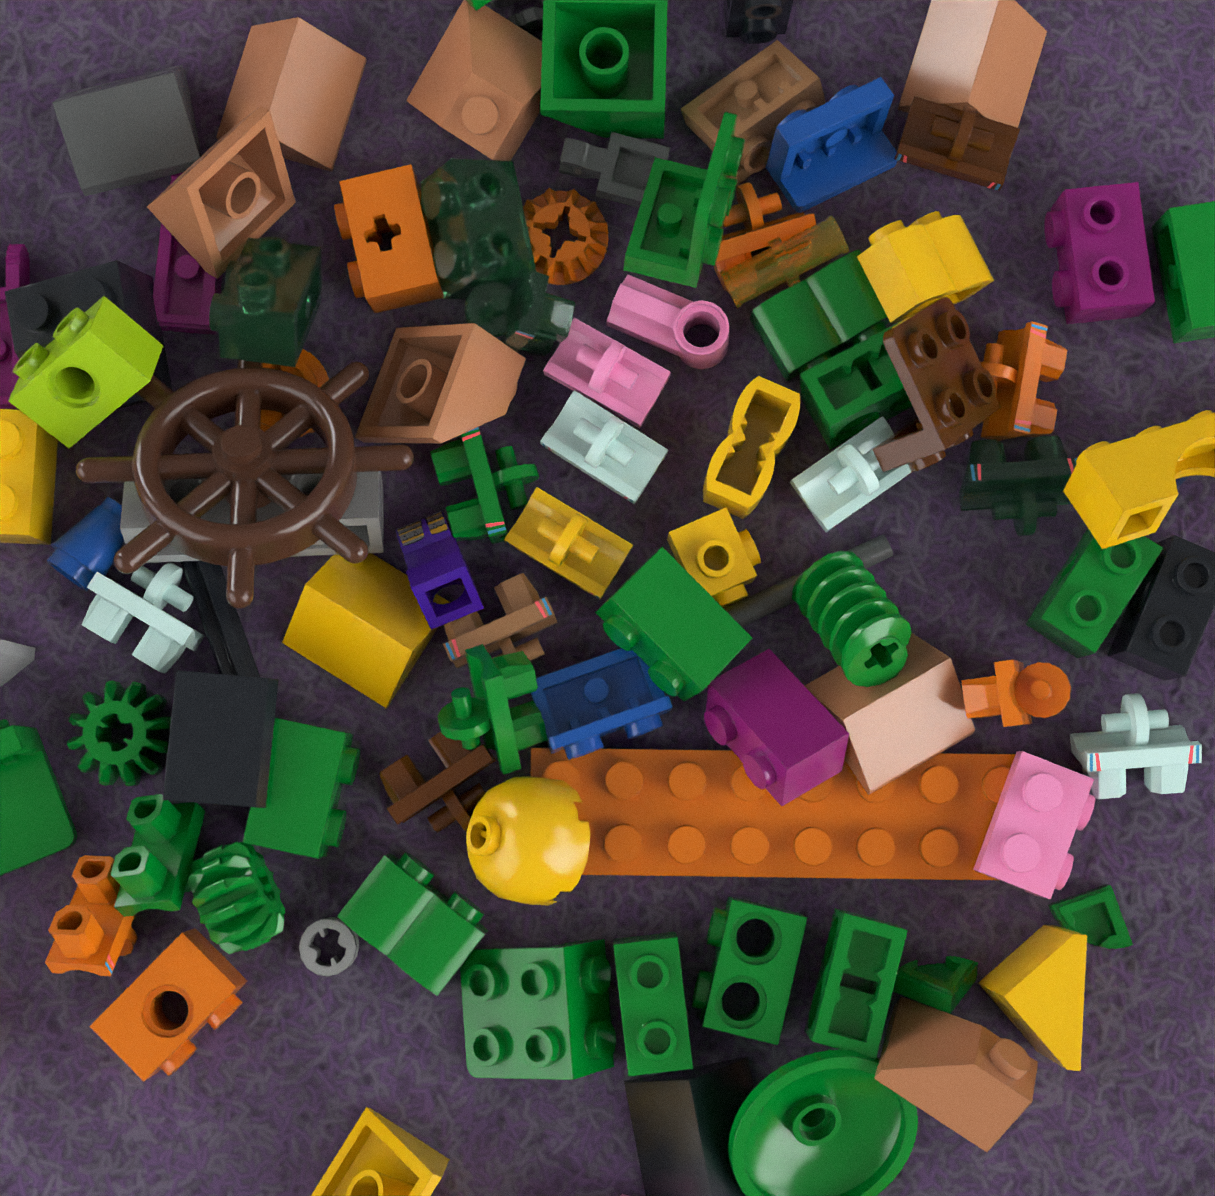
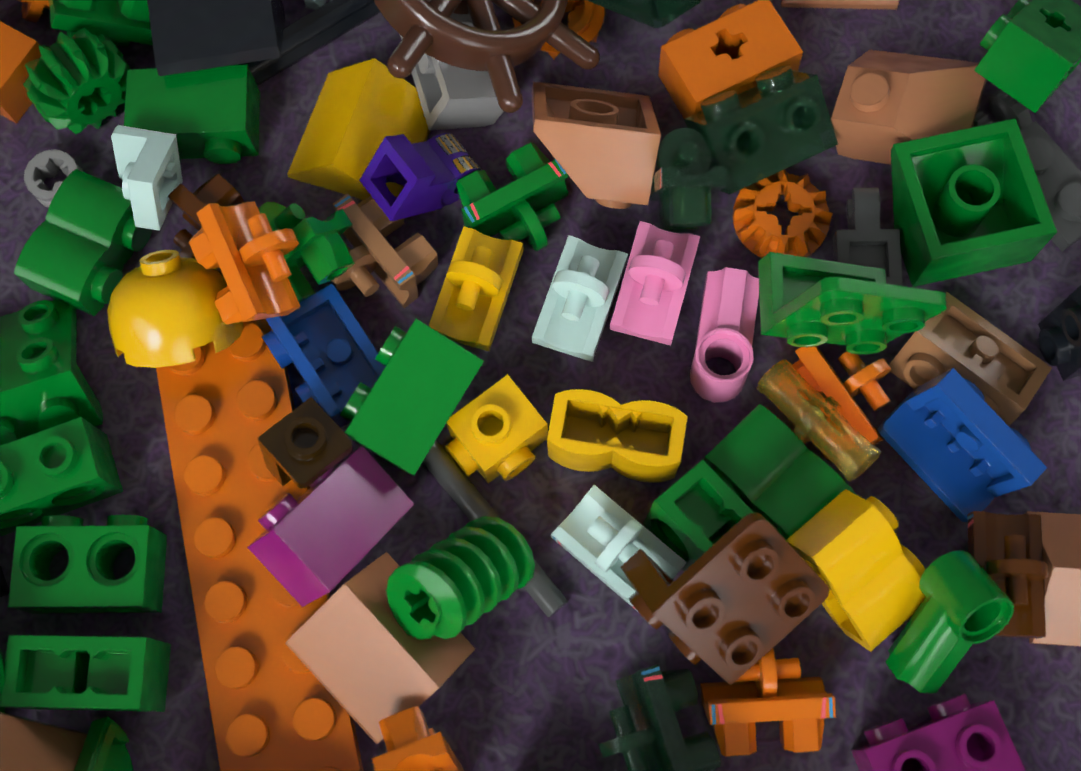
camera: 80 degrees right, 10 degrees down
(358, 832) = (149, 172): none -> light aqua bracket
(507, 744) = (250, 259): none -> orange hips
(703, 730) = (303, 445): none -> dark brown bracket
(986, 196) = (958, 611): none -> green piece

